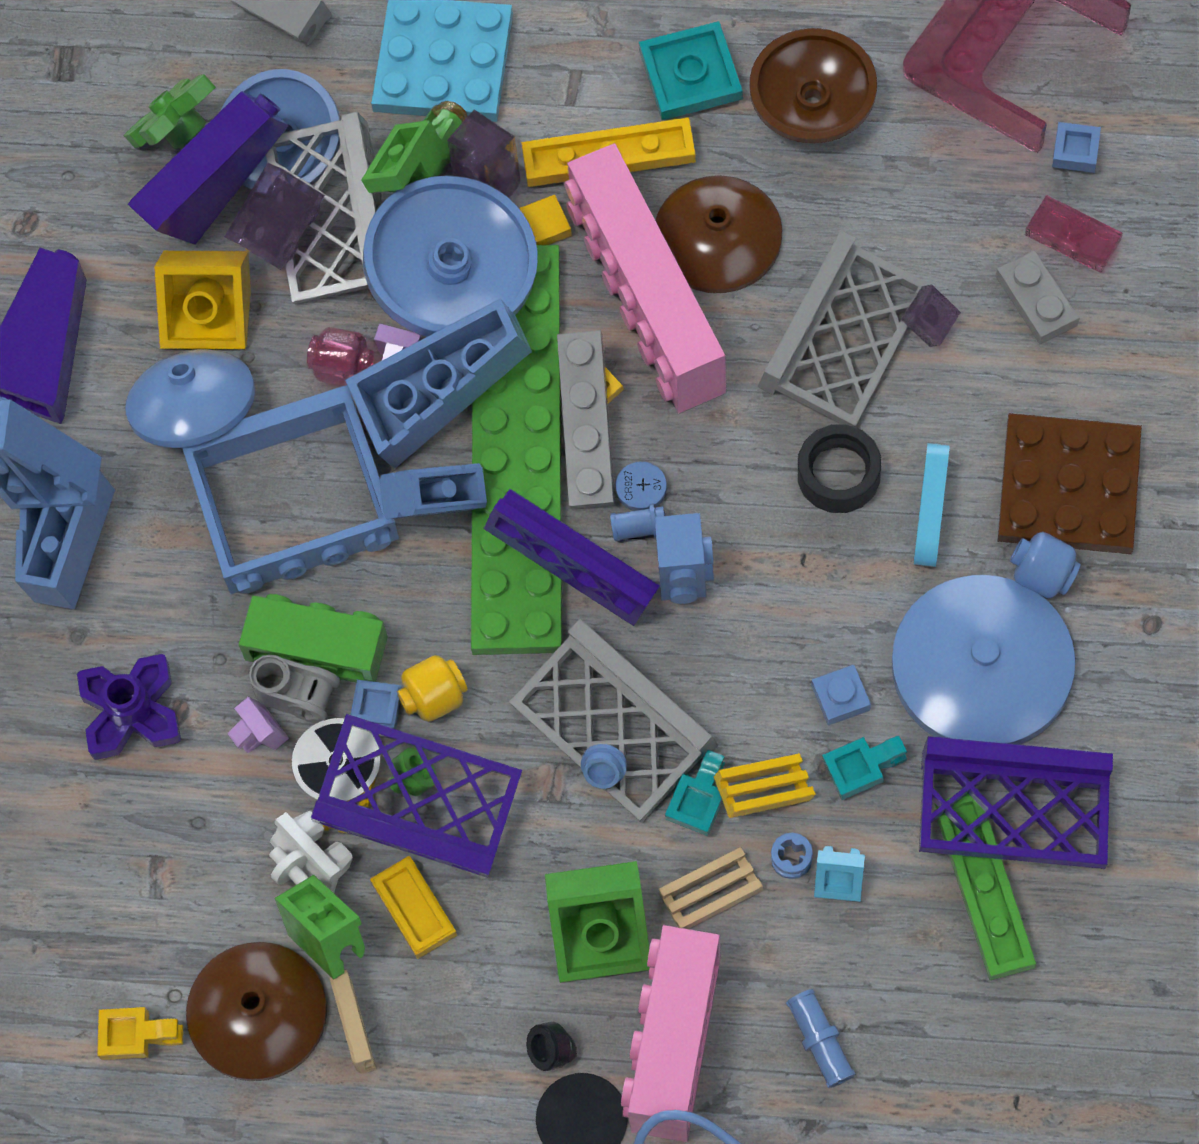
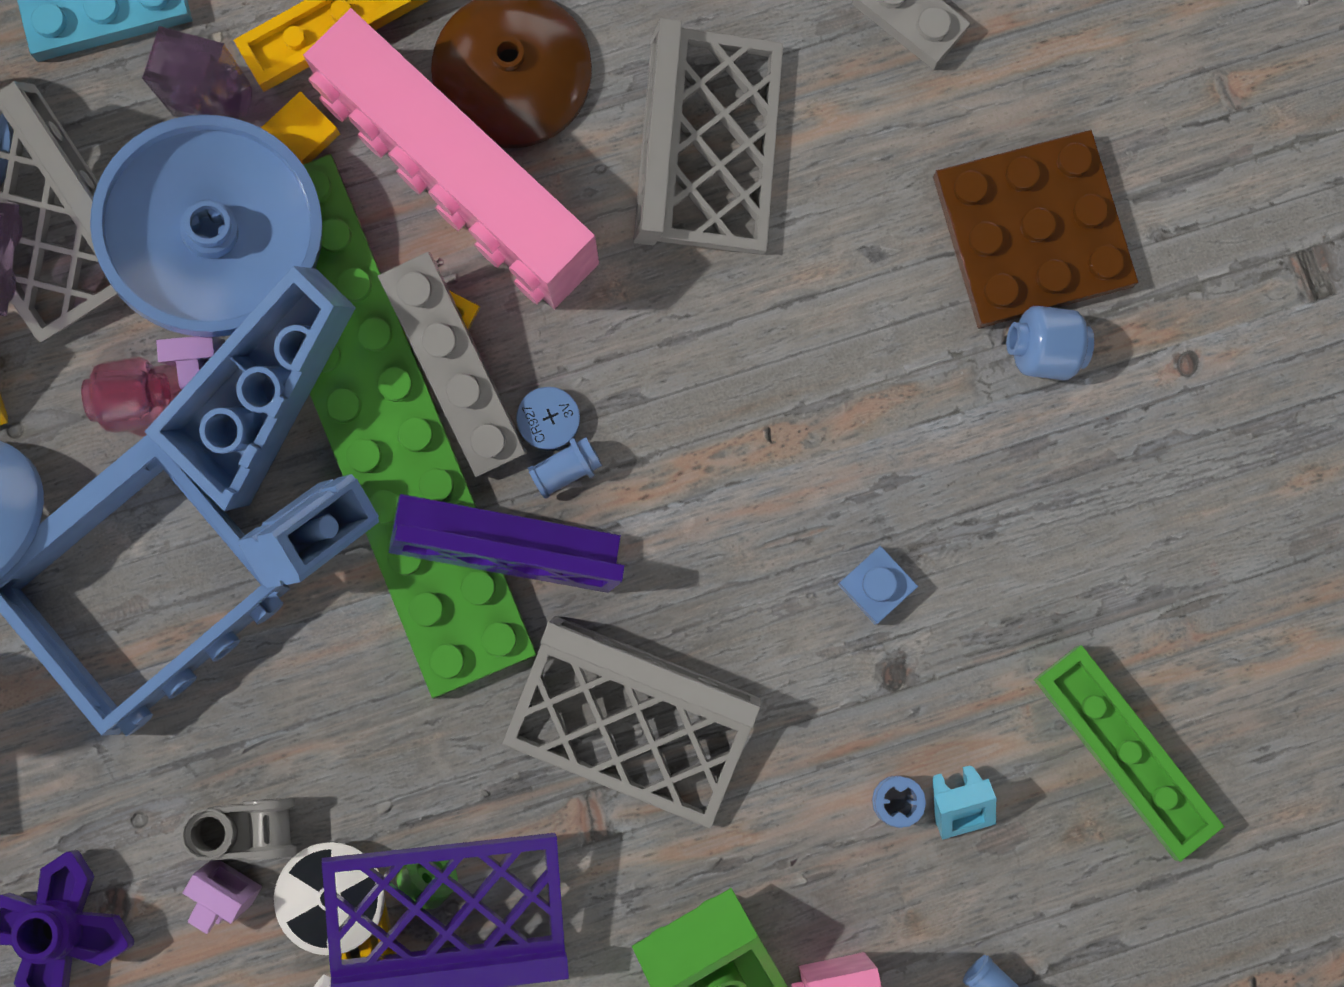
camera: 30 degrees left, 15 degrees up
(314, 637) = (240, 759): bright green brick -> none
(377, 702) = (348, 808): medium blue tile -> none
(415, 150) = (108, 102): bright green plate -> none
(432, 688) = (406, 767): yellow head -> none
(603, 765) = (647, 789): medium blue plate -> none
(683, 558) = (639, 499): medium blue brick -> none
(697, 799) = (767, 781): teal plate -> none
(703, 873) = (839, 894): tan tile -> none
(787, 763) = (868, 707): yellow tile -> none
(839, 437) = (769, 270): black tyre -> none
(858, 767) = (933, 668): teal plate -> none
(931, 315) = (802, 83): clear purple plate -> none
(931, 505) = (893, 317): medium azure beam -> none
(983, 661) = (1021, 484): medium blue dish -> none
(1020, 764) = (1118, 599): dark purple fence -> none

